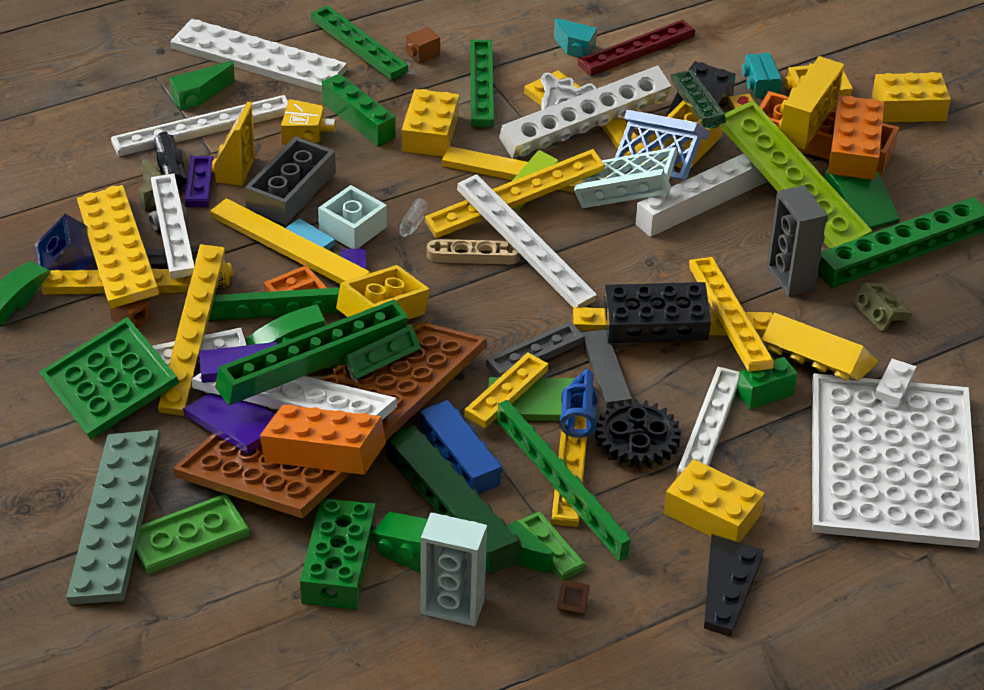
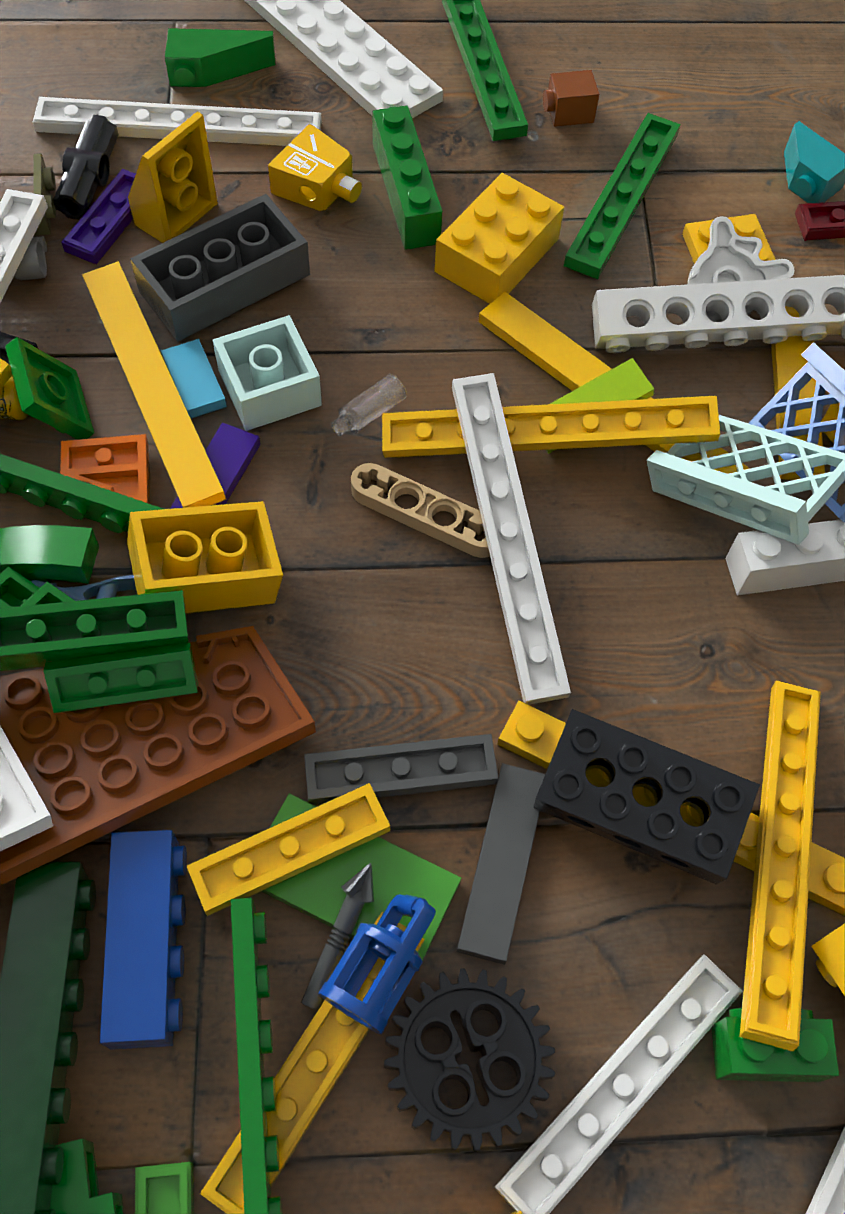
camera: 25 degrees right, 20 degrees up
(242, 260) = (49, 390): none -> green plate
(549, 393) = (358, 892): none -> dark grey piece

